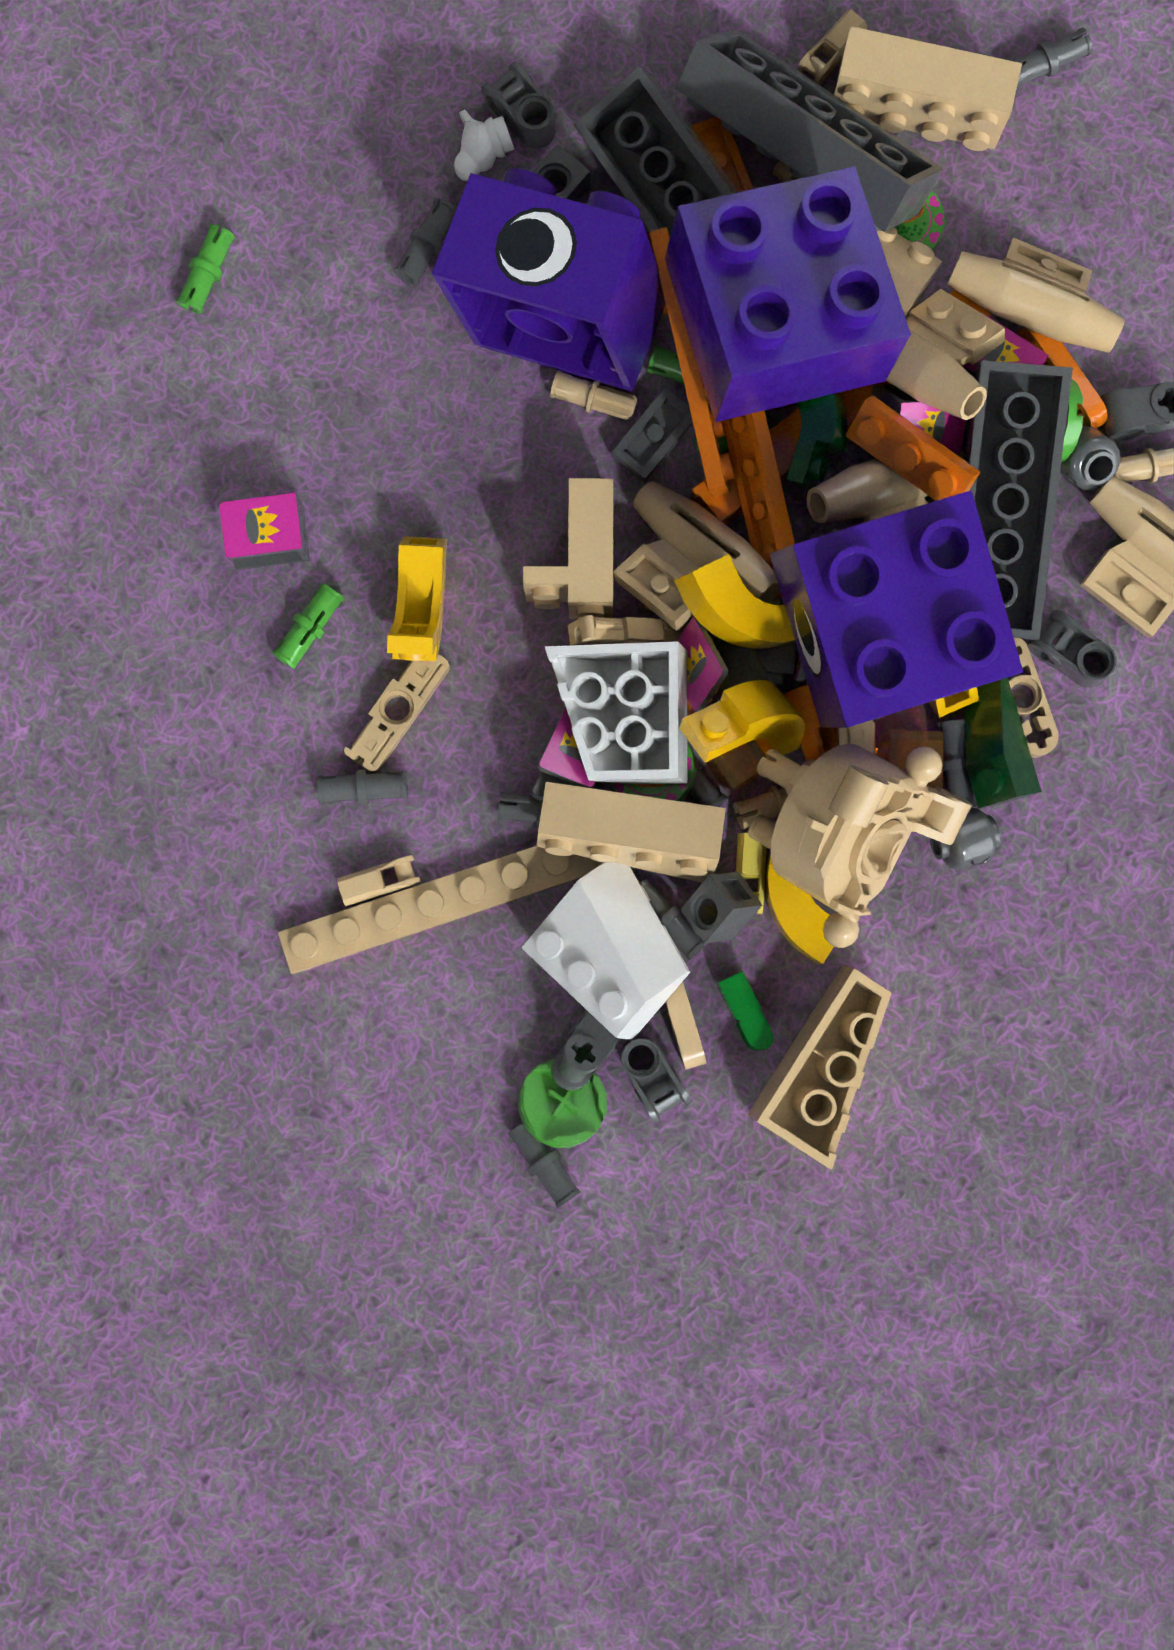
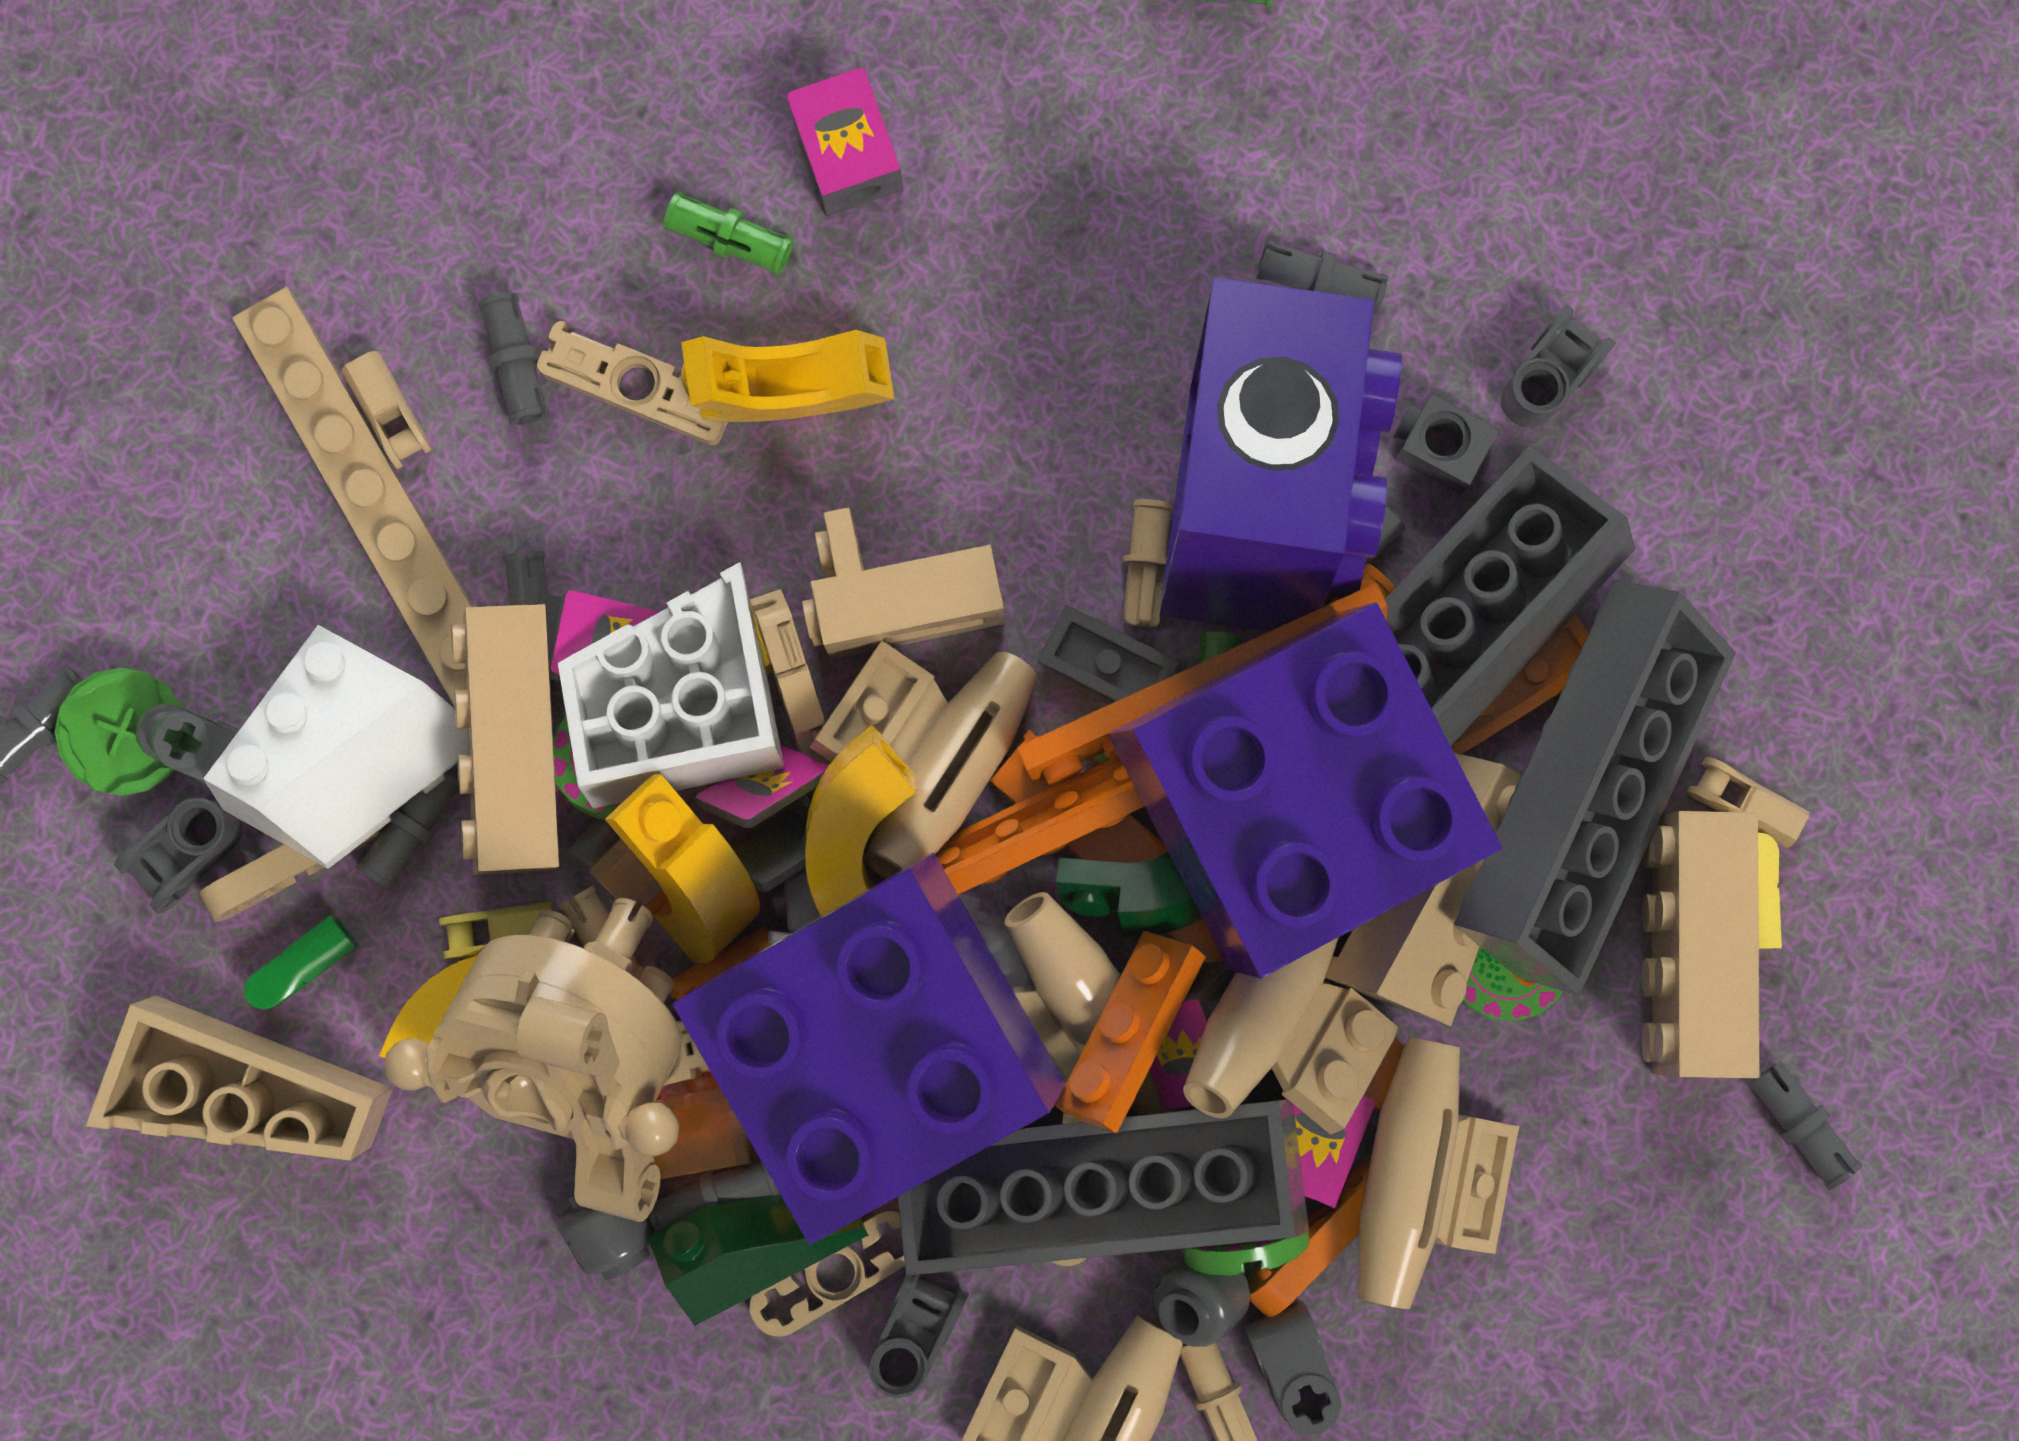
camera: 75 degrees right, 0 degrees up
(481, 145) = (1481, 323): white animal -> none
(721, 907) = (432, 895): dark grey brick -> none

